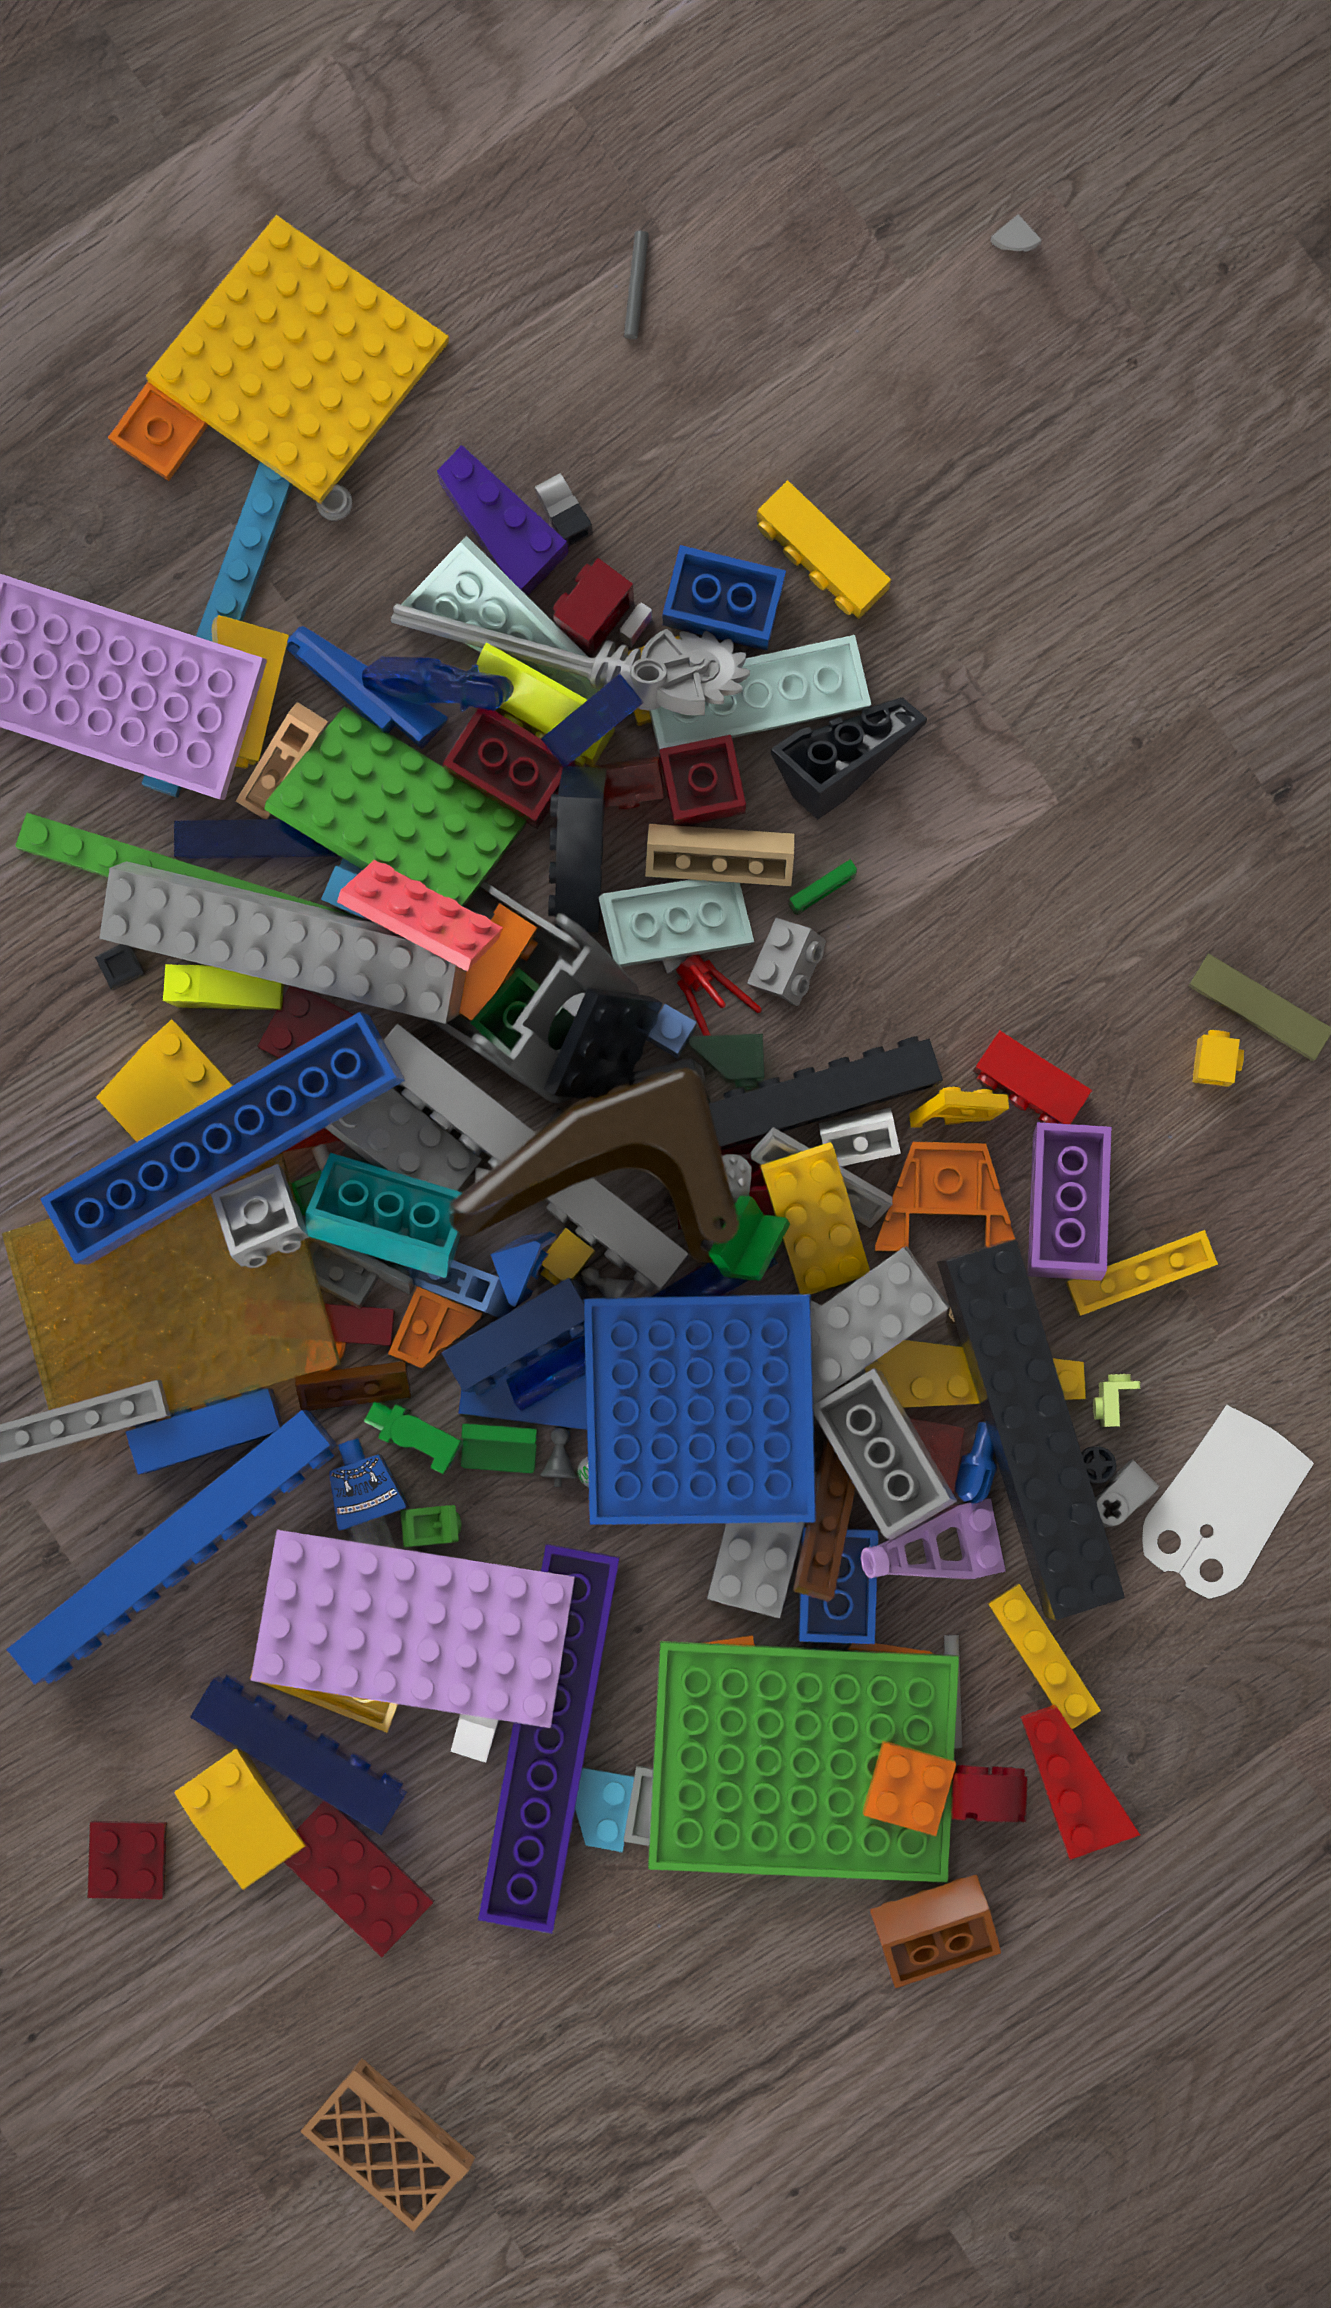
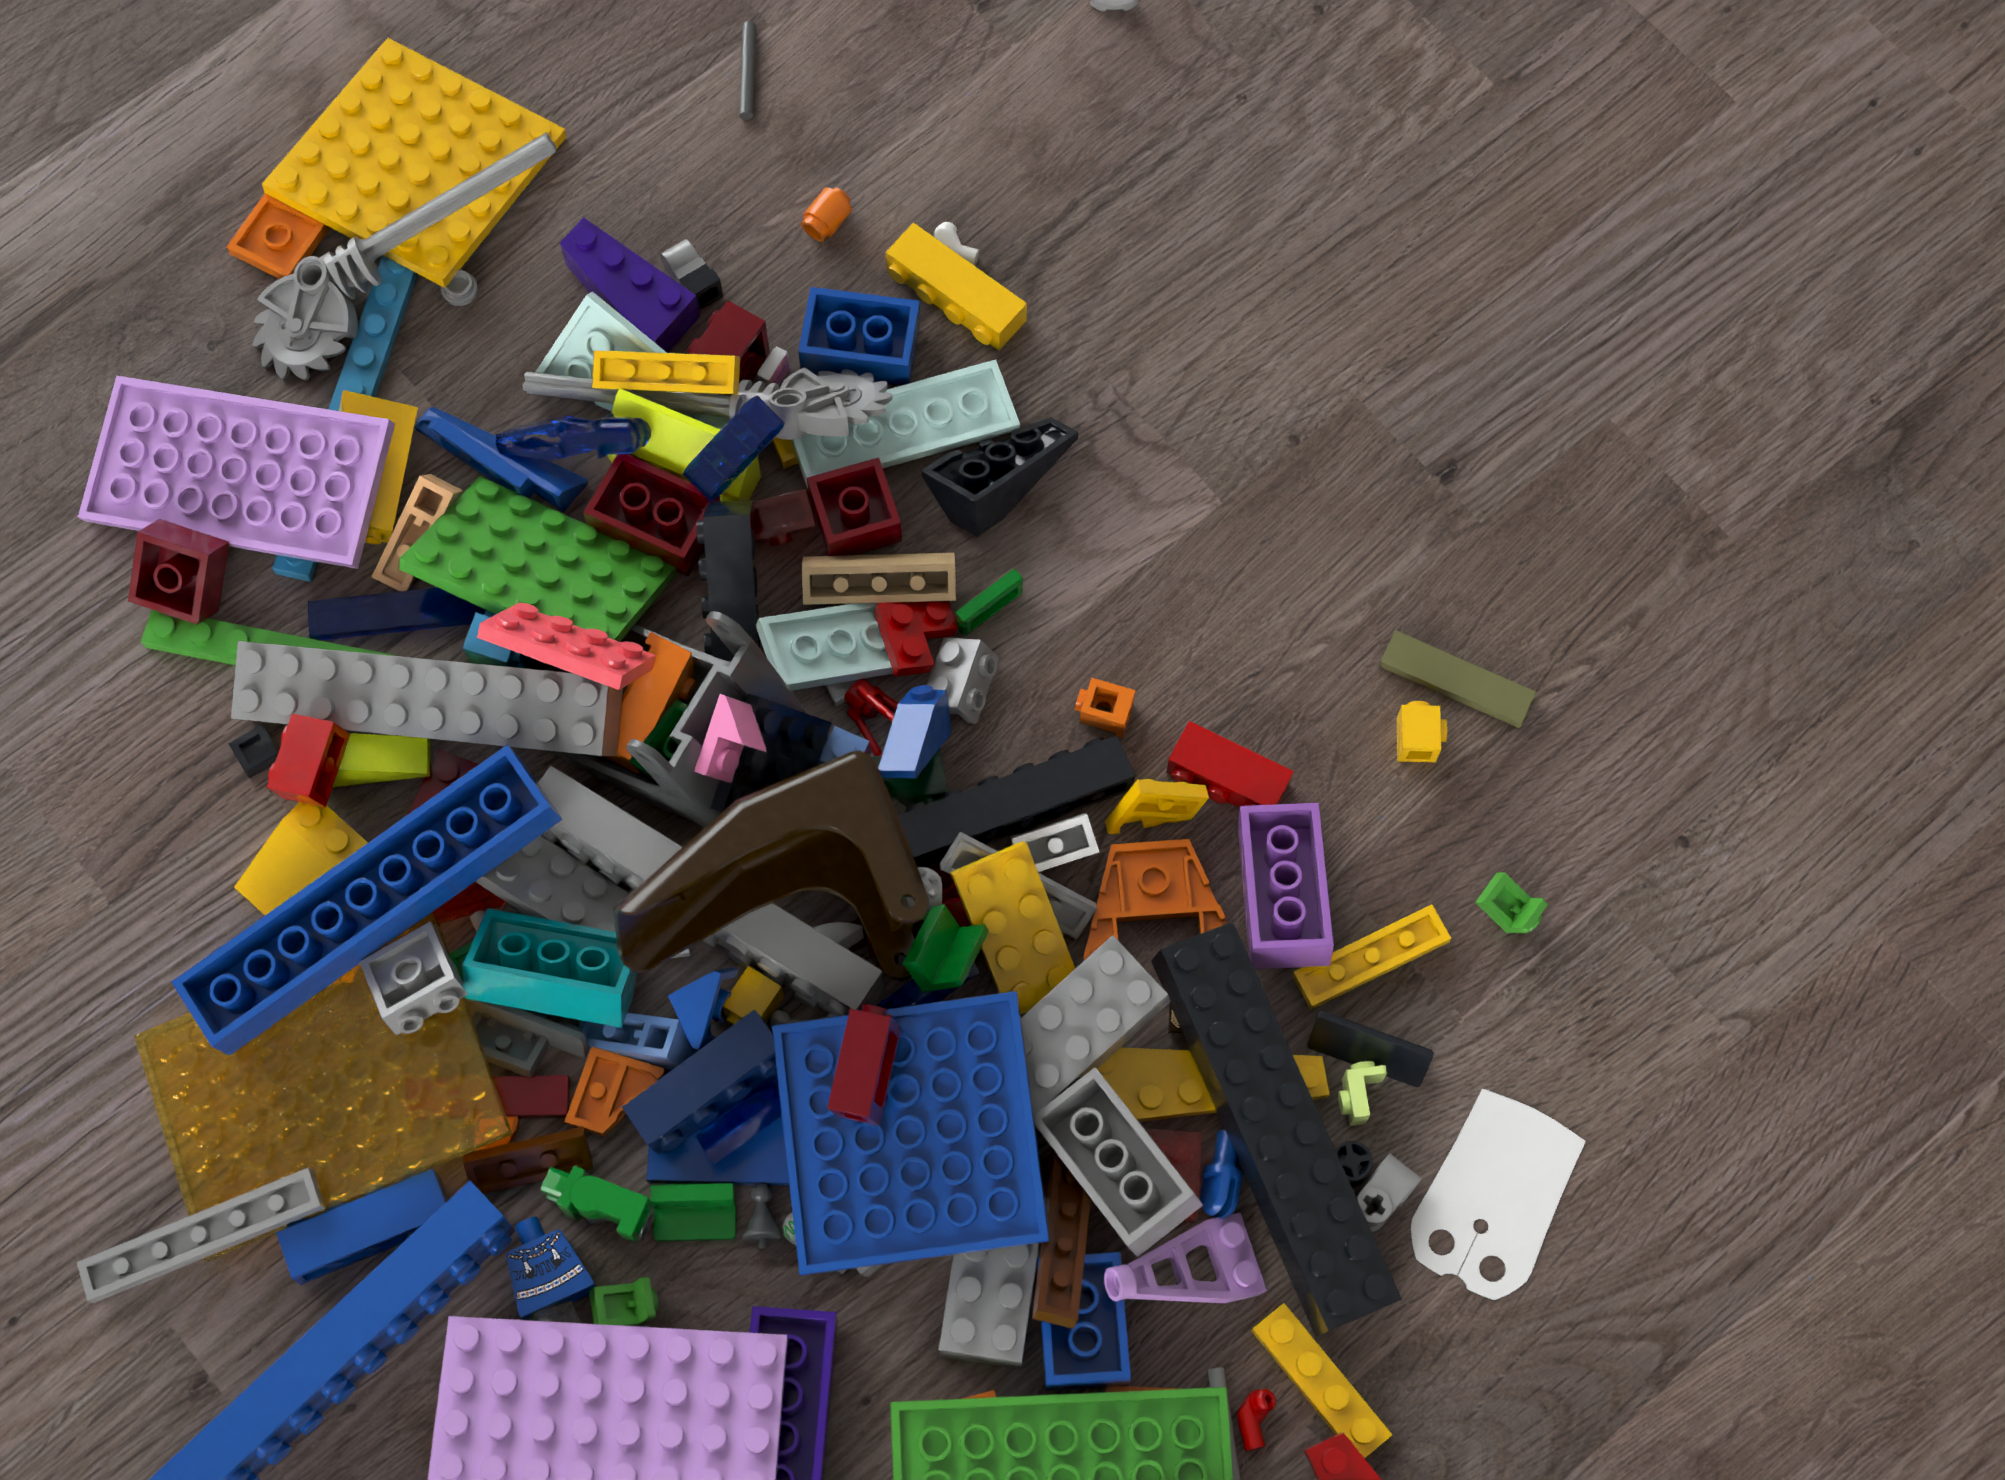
camera: 10 degrees left, 15 degrees down
(53, 784) = (178, 571): none -> dark red brick
(171, 995) = (308, 760): none -> red brick
(186, 527) = (312, 317): none -> light grey piece
(532, 630) = (666, 372): none -> yellow plate
(568, 1026) = (729, 730): none -> bright pink slope
(648, 1202) = (842, 933): none -> white tile
(665, 1354) = (865, 1065): none -> dark red window
(702, 457) = (826, 213): none -> orange brick
(738, 913) = (905, 631): none -> red plate
(740, 1022) = (916, 732): none -> slope
(820, 497) = (947, 235): none -> white arm
(935, 1000) = (1105, 694): none -> orange brick
(977, 1680) = (1251, 1415): none -> red arm
(1127, 1359) = (1360, 1043): none -> black slope
(1278, 1238) = (1511, 905): none -> bright green bracket

